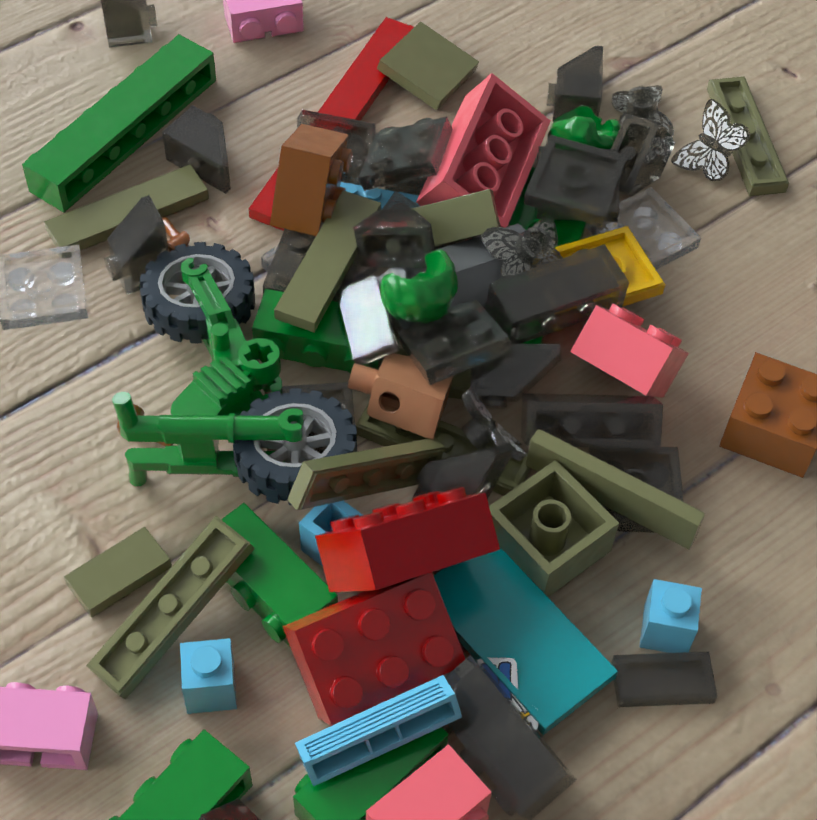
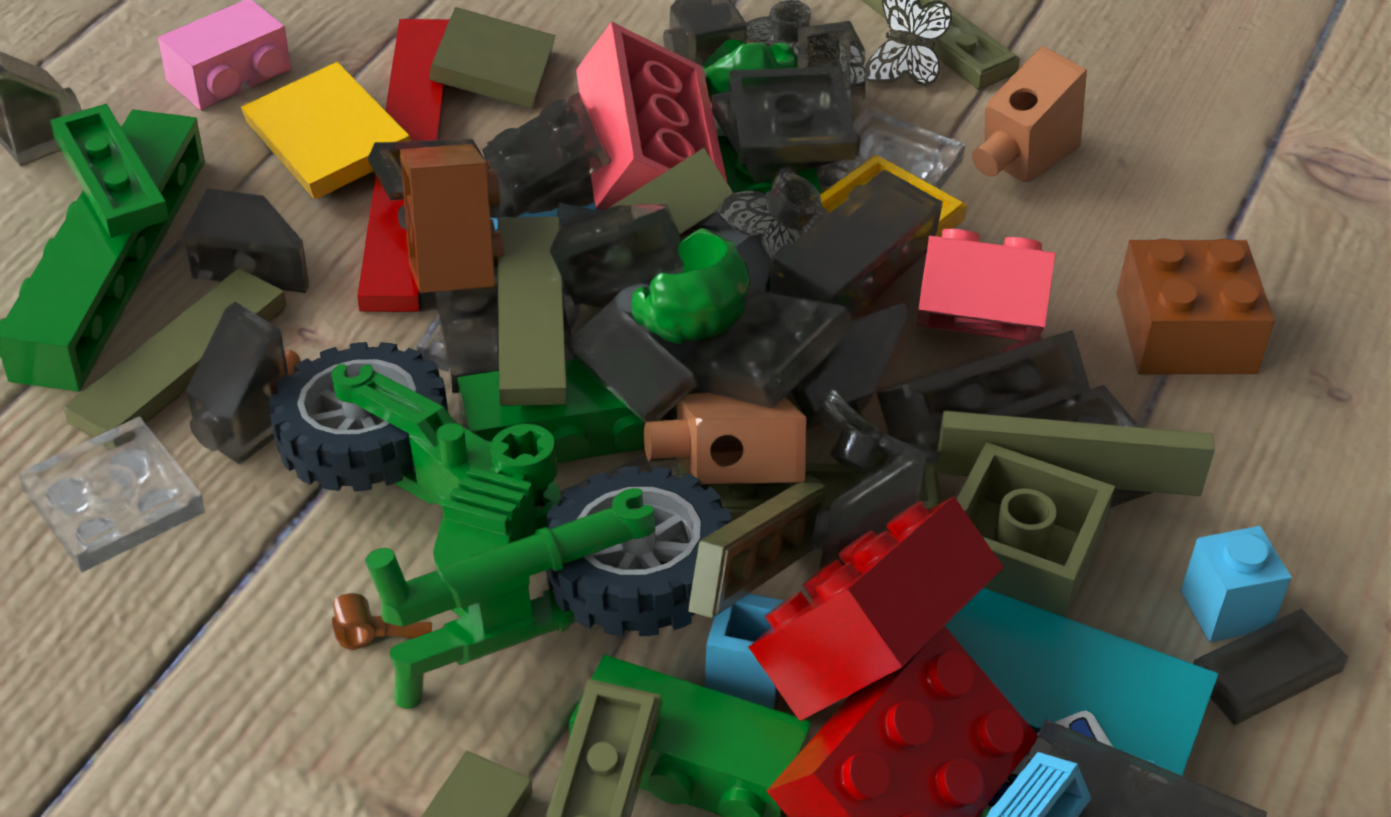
camera: 25 degrees left, 10 degrees down
(136, 75) = (109, 170): none -> green plate
(292, 80) = (323, 128): none -> yellow tile
(756, 236) = (1034, 118): none -> nougat torso

